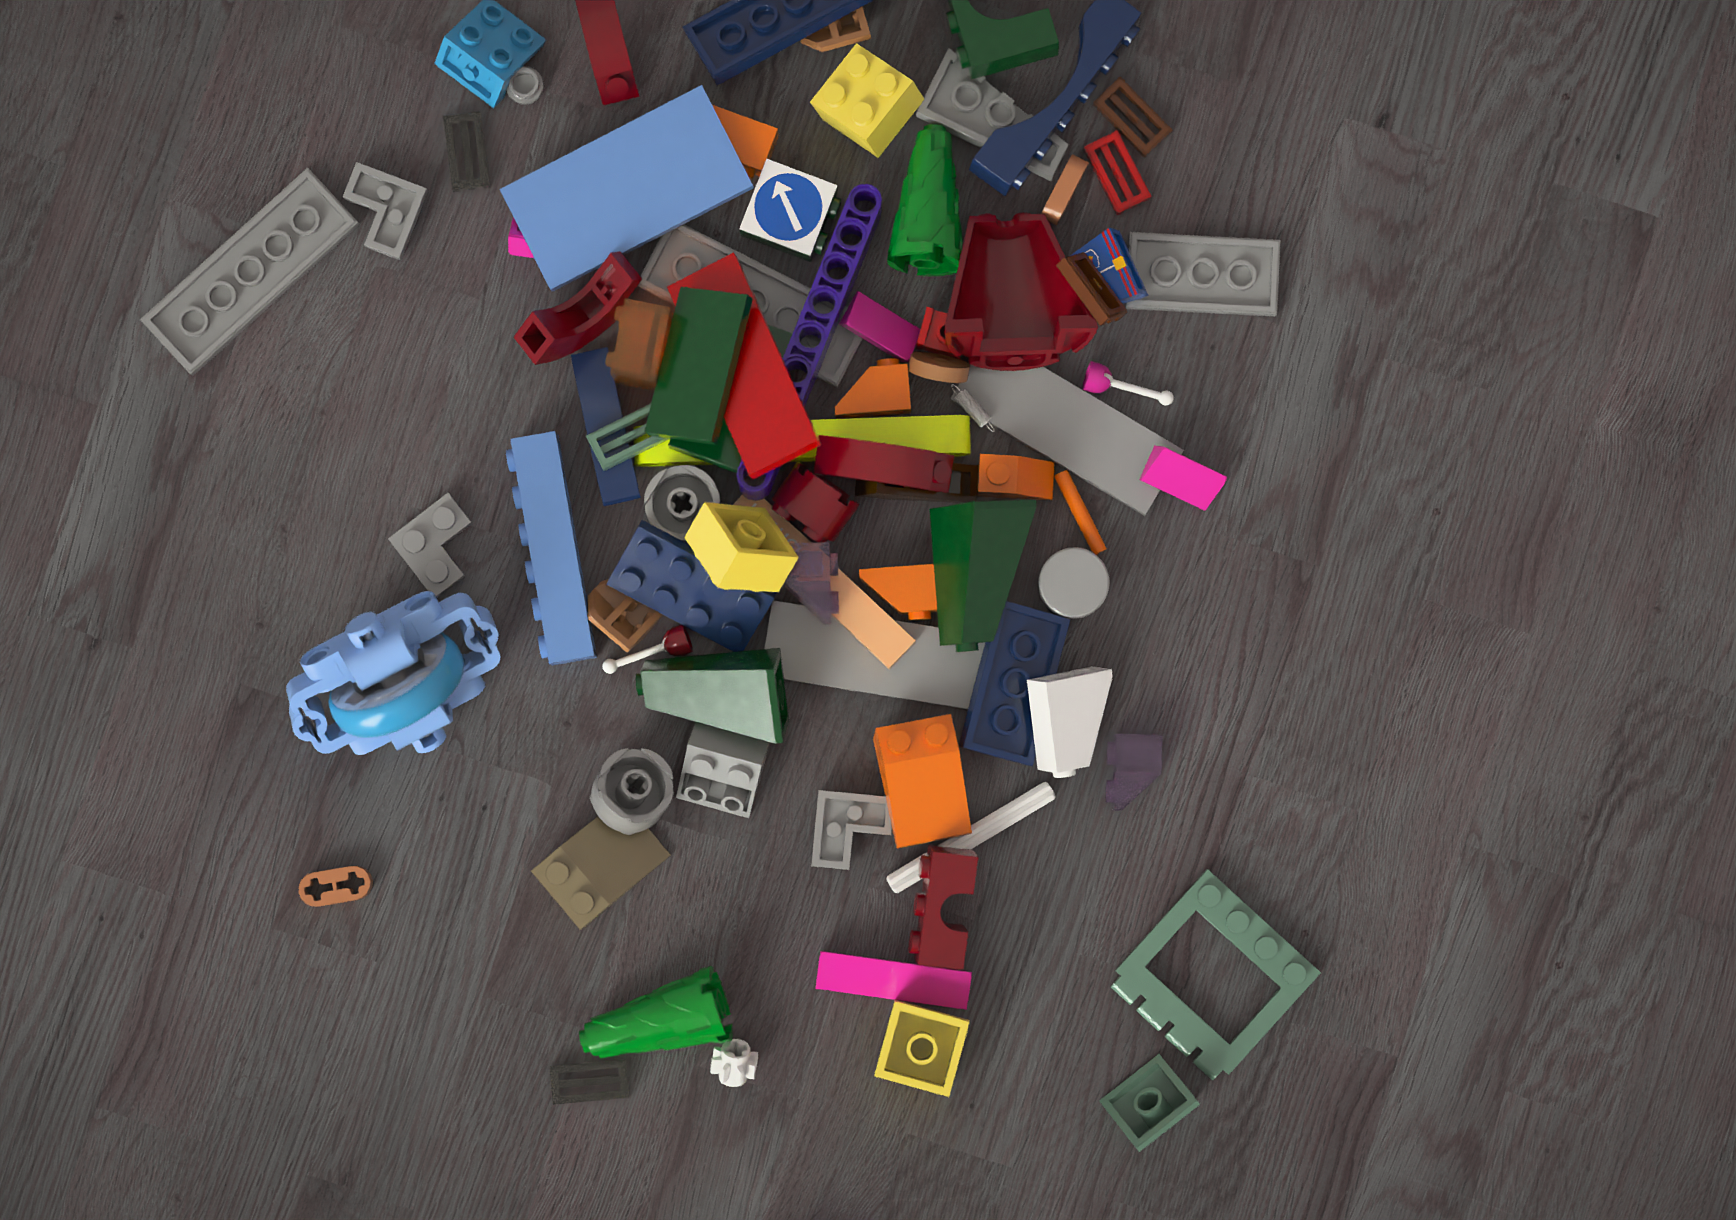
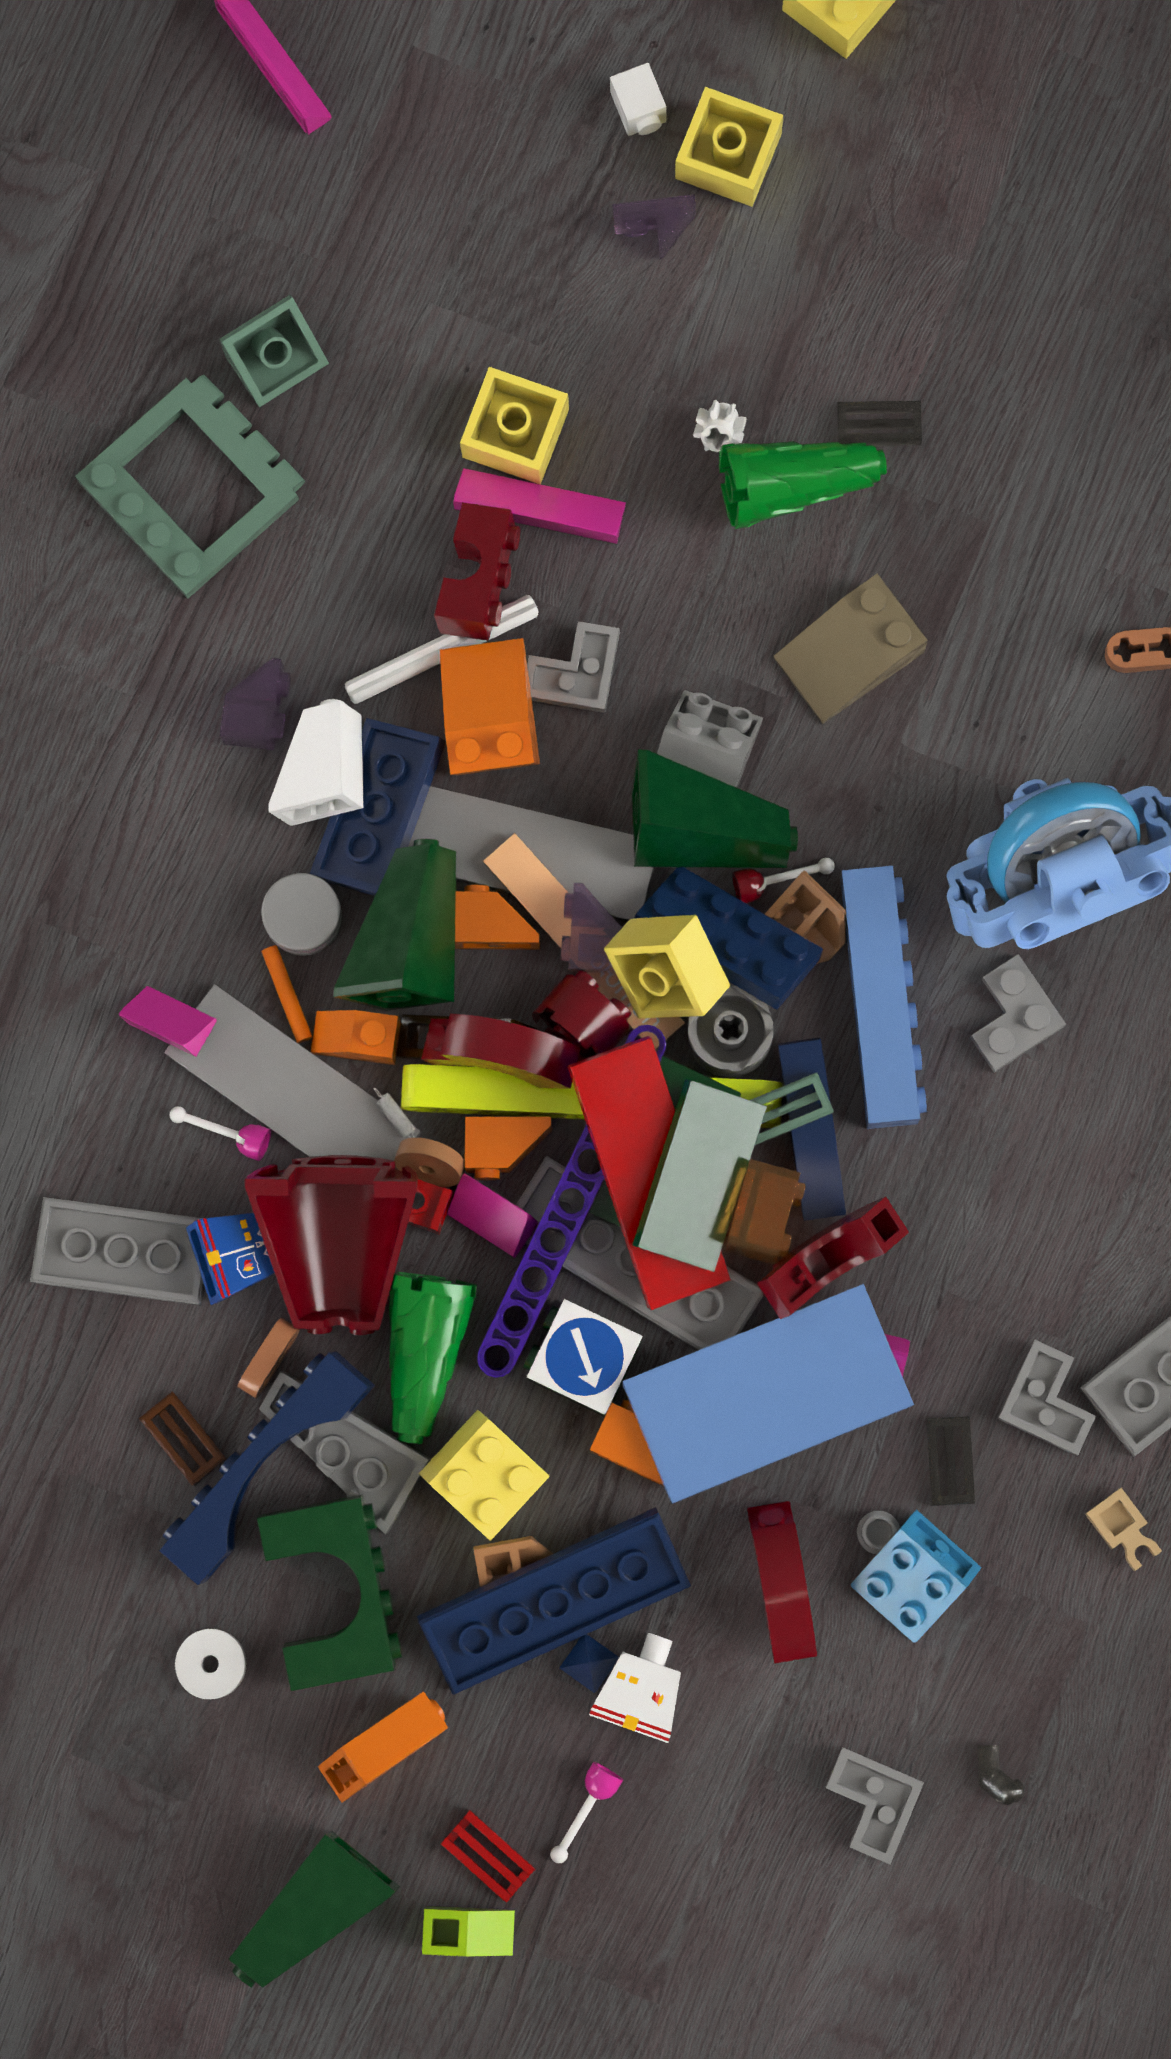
camera: 170 degrees left, 5 degrees down
(316, 107) = (1120, 1522): none -> tan plate
(629, 769) = (785, 720): light grey brick -> none
(1092, 288) = (247, 1228): reddish brown tile -> none
(1131, 201) = (220, 1409): red tile -> none

